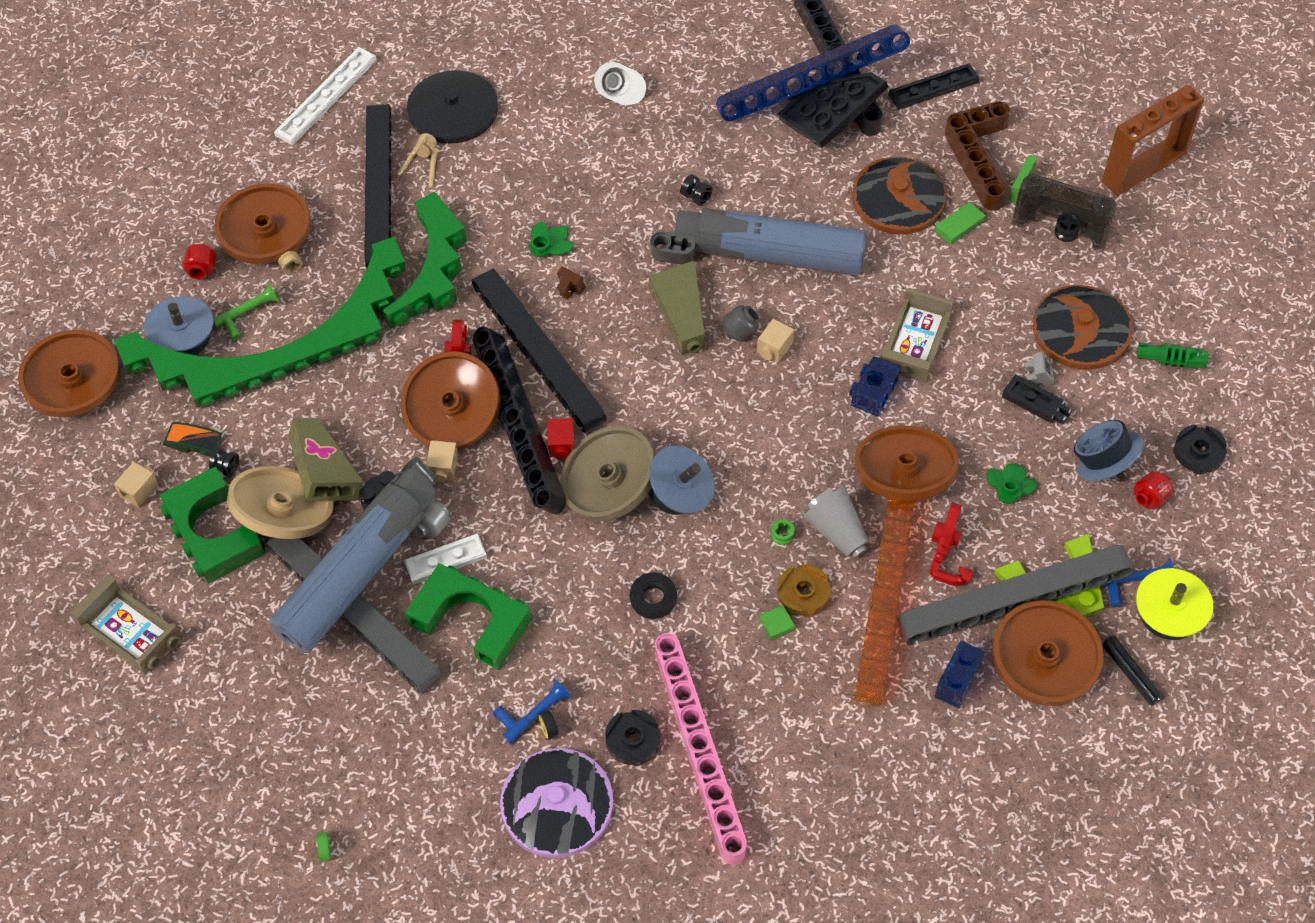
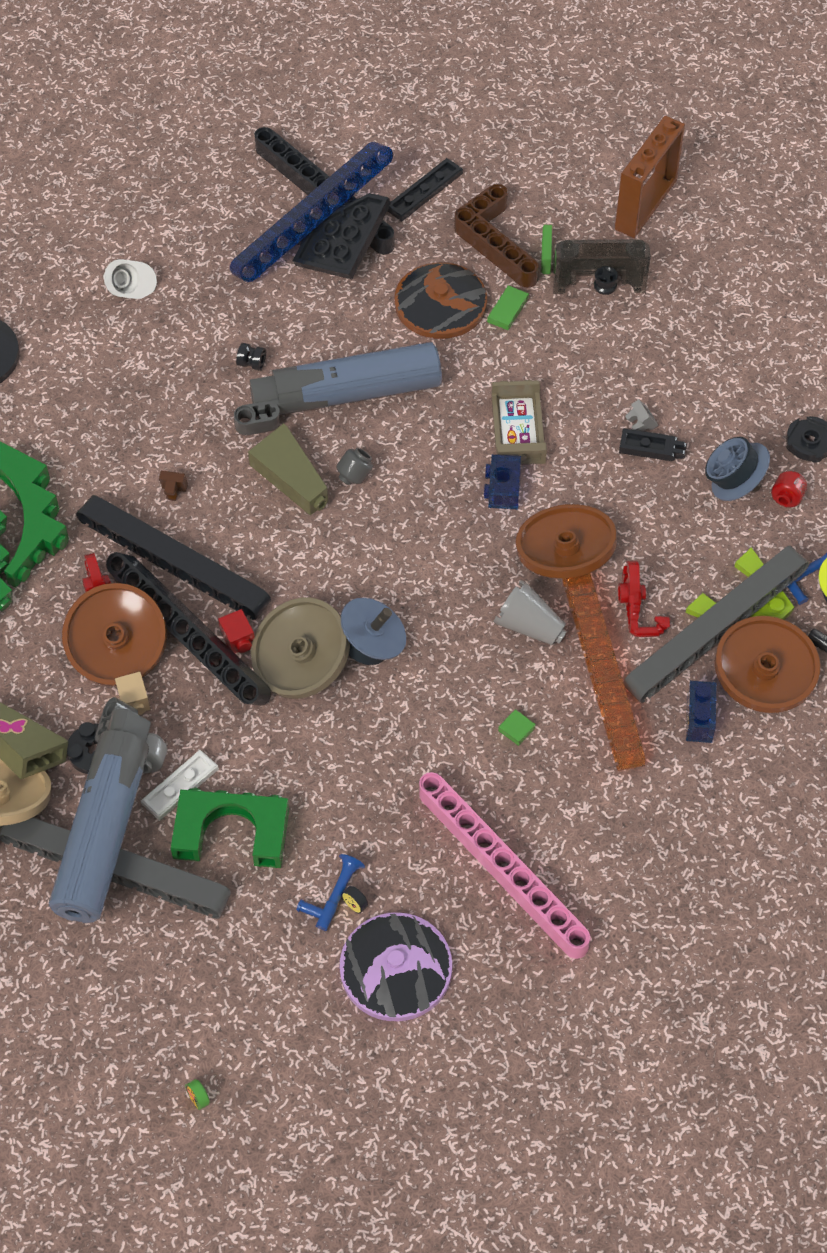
camera: 25 degrees left, 0 degrees up
(552, 239) = (133, 448): green plate -> none
(628, 723) = (427, 869): black plate -> none
(653, 580) = (393, 730): black tyre -> none
(775, 341) = (393, 472): tan brick -> none
(779, 539) = (485, 651): bright green bush -> none
(807, 604) = (527, 702): pearl gold plate -> none
(1010, 483) = (663, 526): green plate -> none
(1082, 327) = (659, 366): dish -> none
(1187, 356) = (748, 364): green hinge -> none

